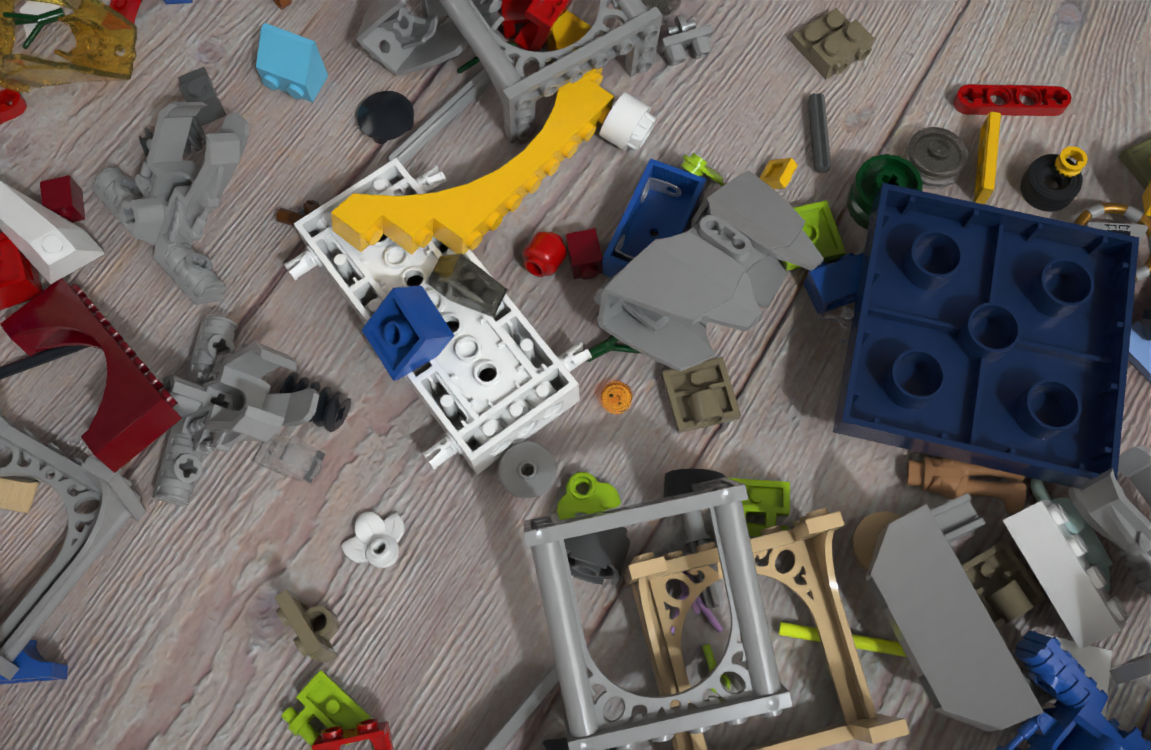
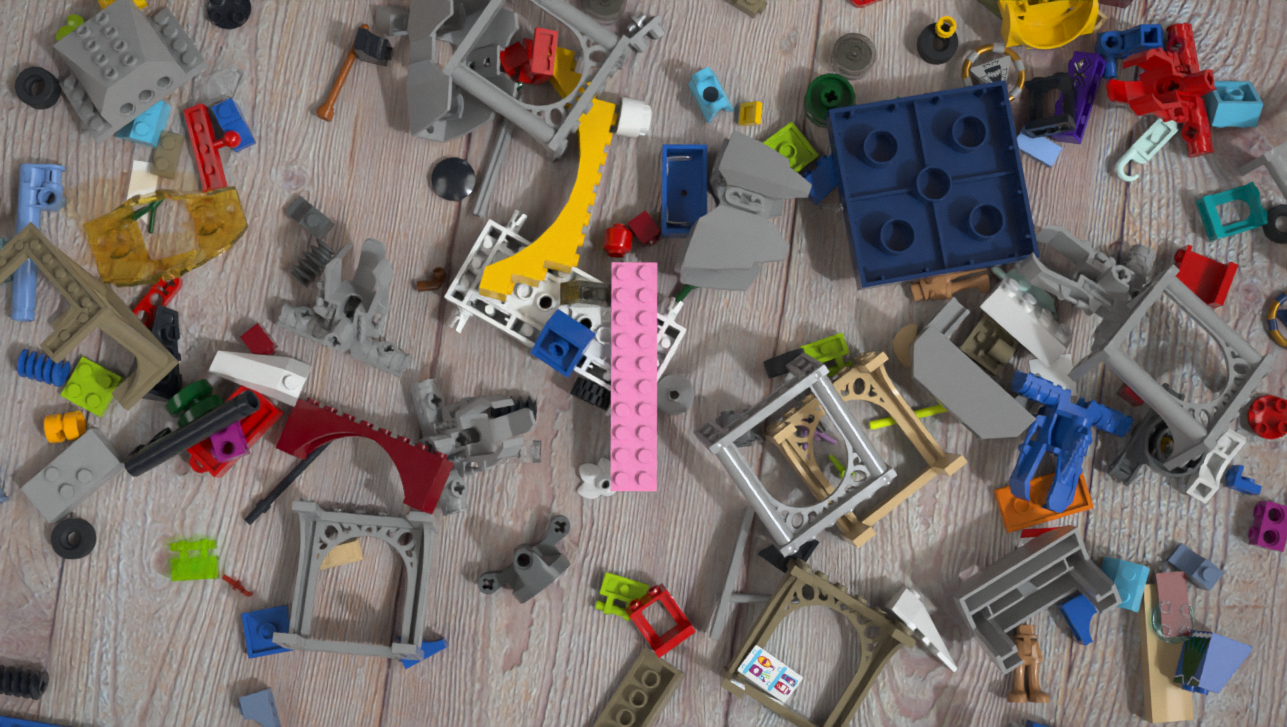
camera: 30 degrees left, 15 degrees up
(223, 616) = (537, 572): none -> dark grey piece
(290, 63) = (367, 171): medium azure slope -> none
(296, 613) = (577, 547): dark tan plate -> none
(419, 420) = (591, 393): none -> black tyre
(475, 421) = (634, 376): none -> bright pink plate
(597, 499) = (722, 401): lime plate -> none
(616, 397) = (708, 320): clear orange tile -> none
(697, 166) = (696, 135): lime plate -> none
(701, 395) = (763, 298): dark tan plate -> none
(734, 128) = (709, 93): none -> medium azure piece
(819, 133) = (766, 66): dark grey axle -> none
(987, 158) = (888, 42): yellow tile -> none

